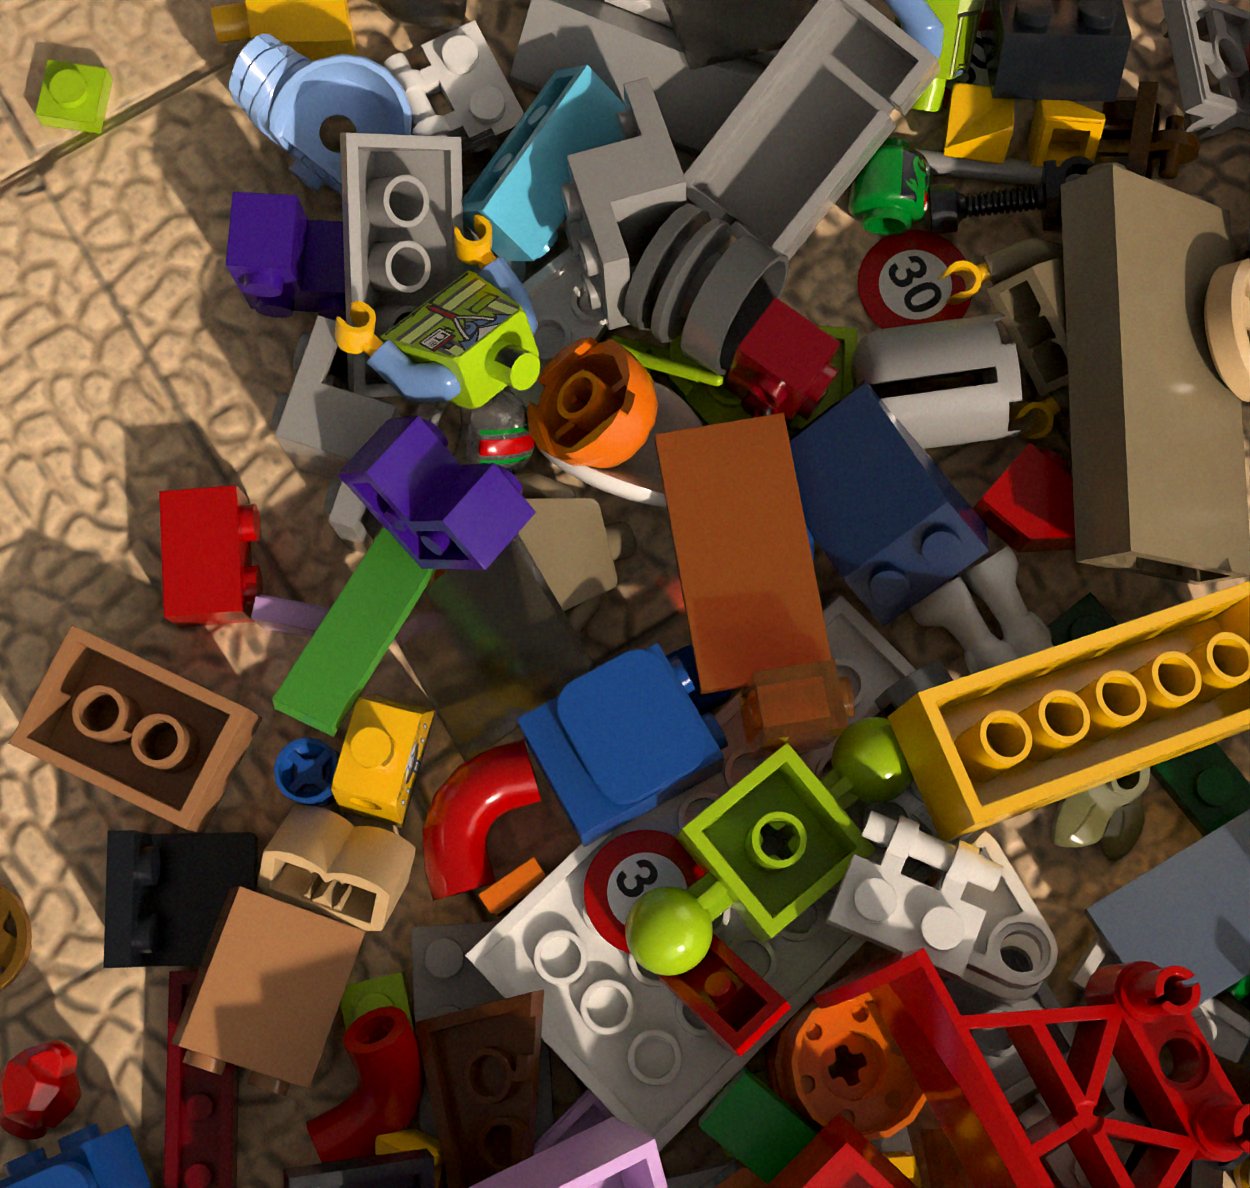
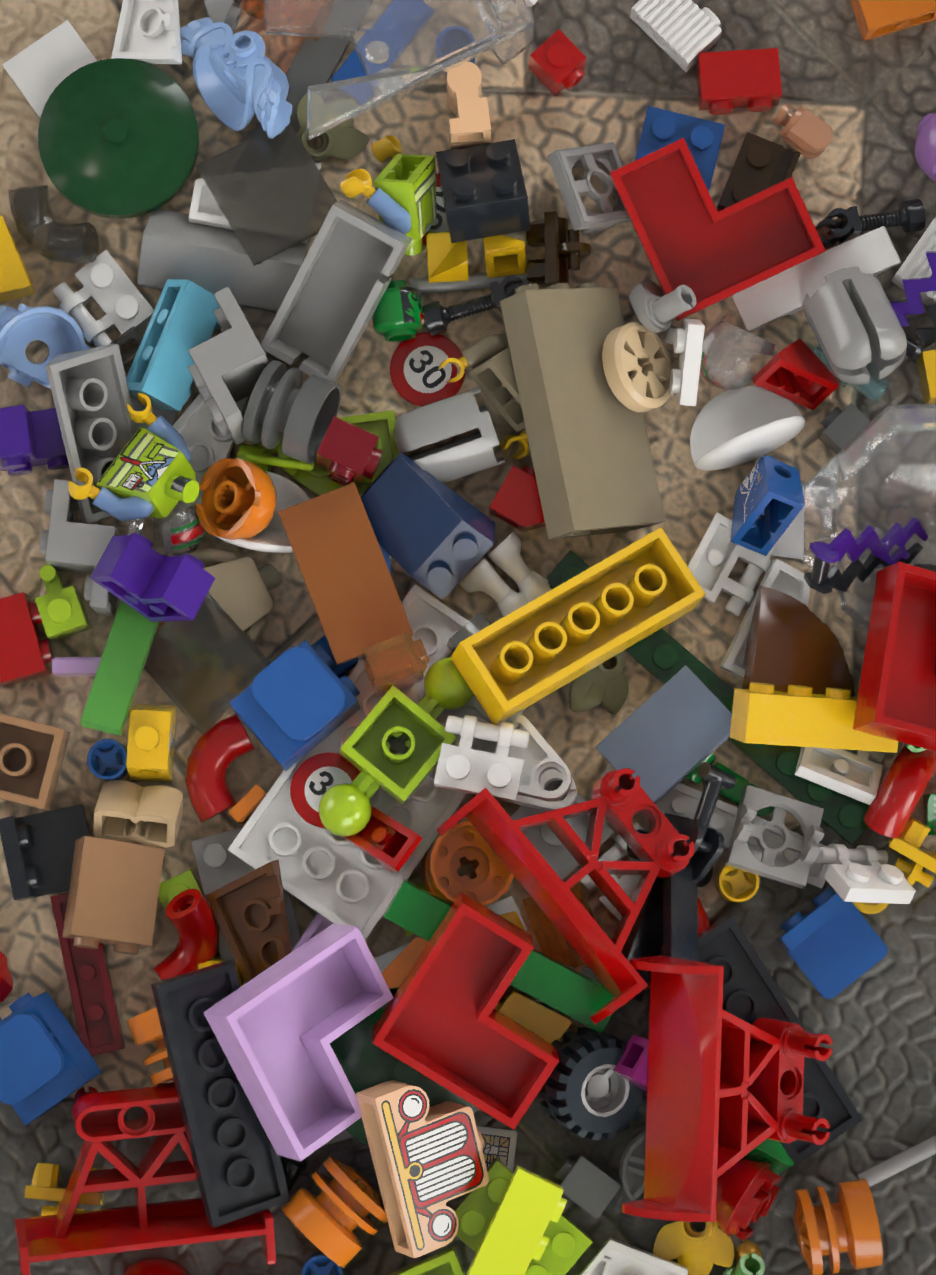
camera: 15 degrees left, 5 degrees up
(290, 522) = (61, 607): none -> lime brick

